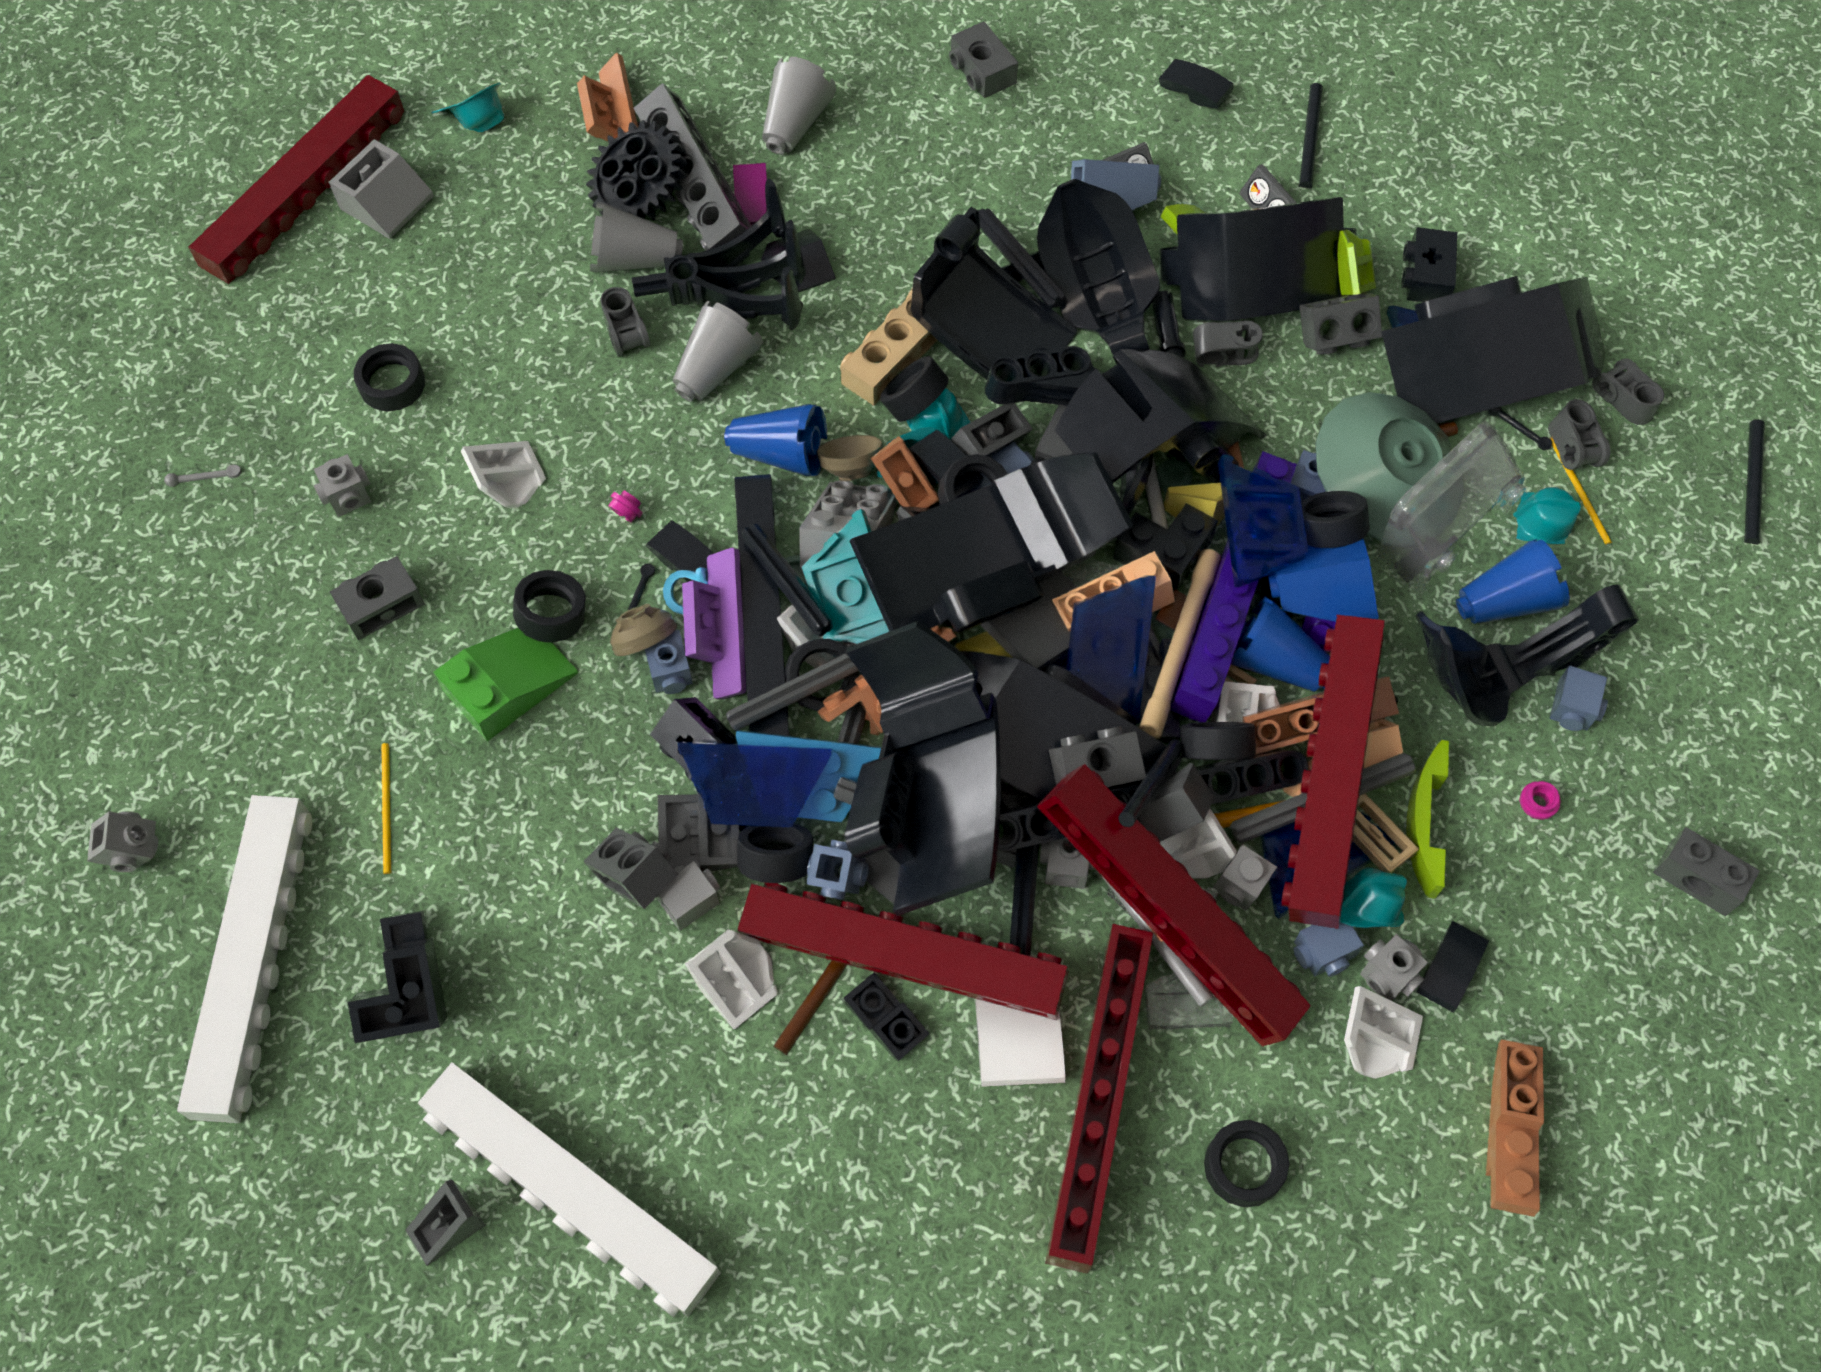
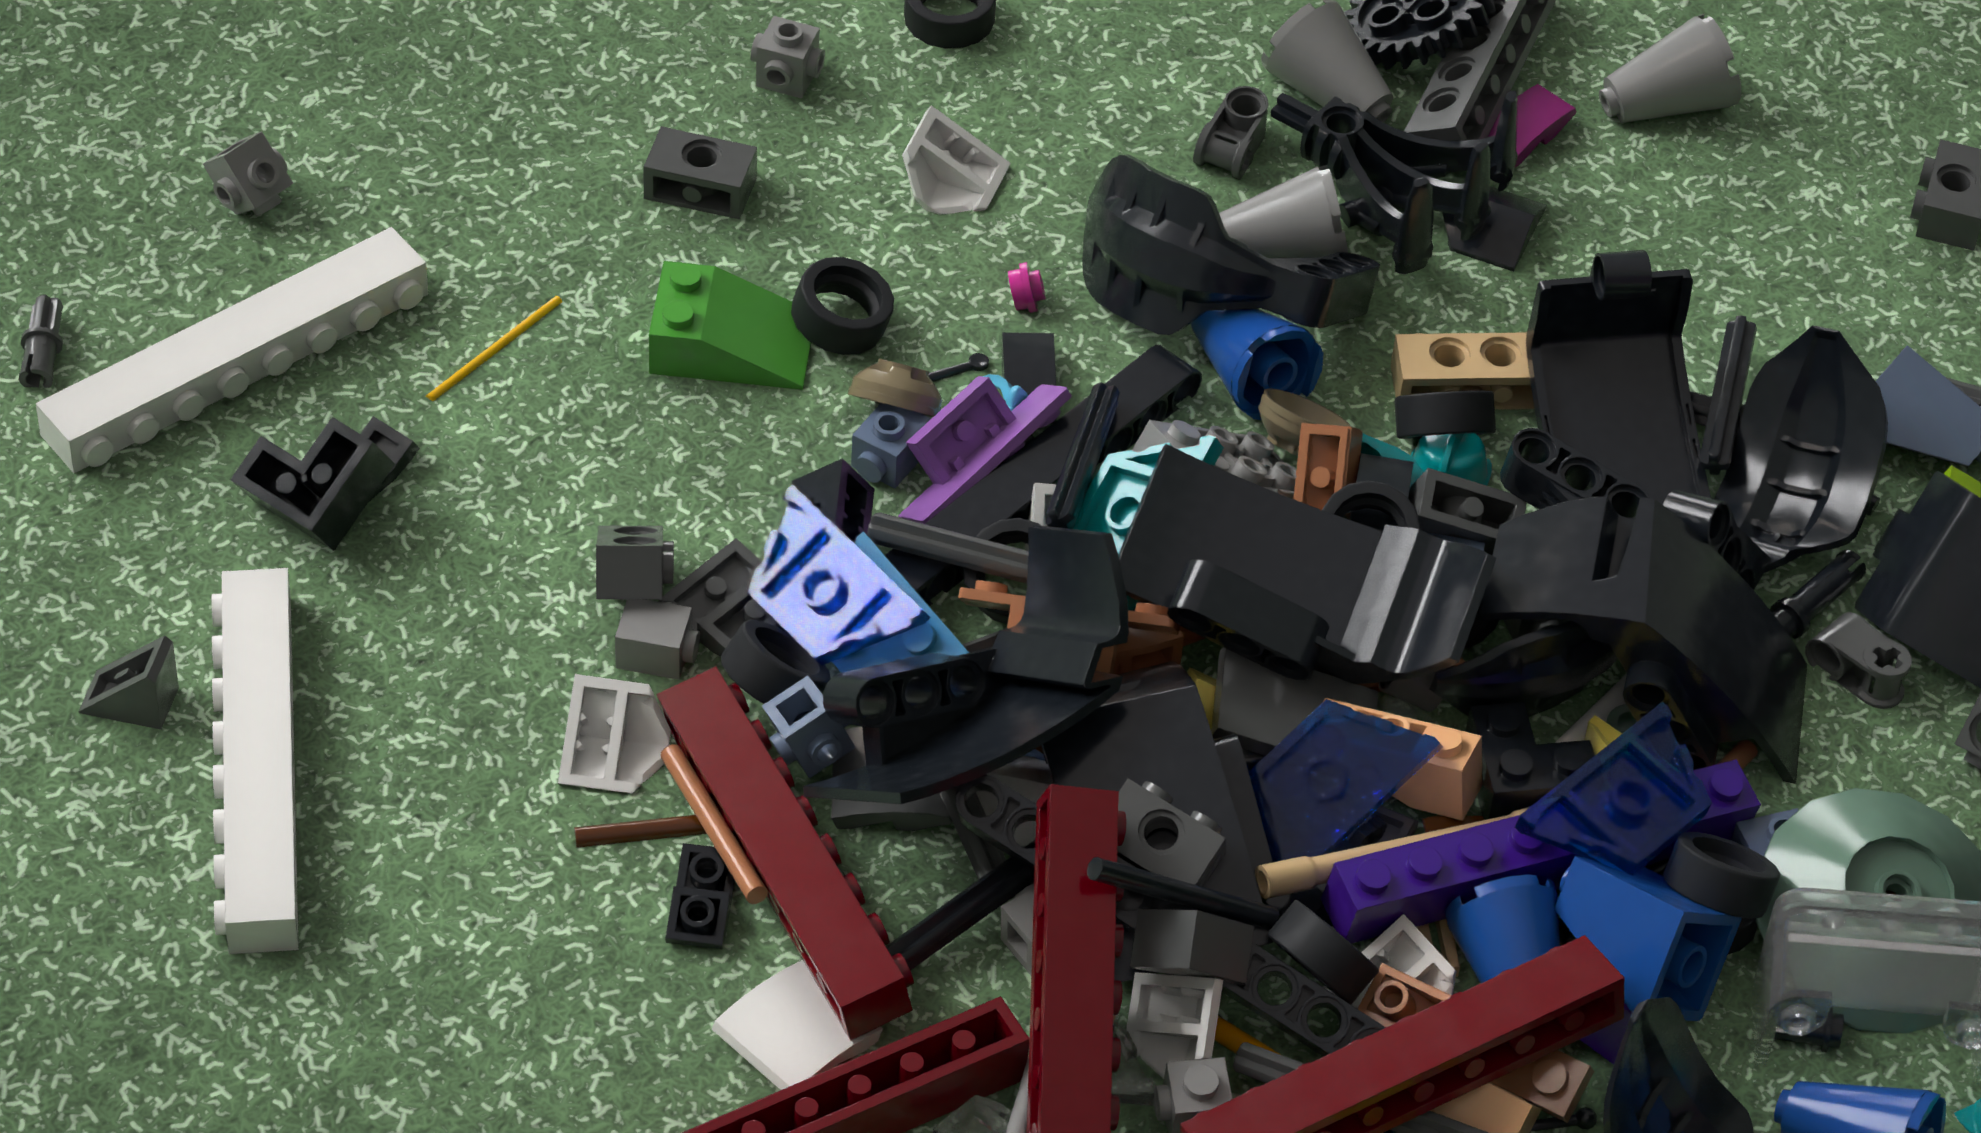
camera: 45 degrees right, 15 degrees down
(121, 1063) = (41, 342): none -> dark grey axle
(694, 422) = (1166, 259): none -> black piece
(847, 971) = (714, 824): none -> nougat bar

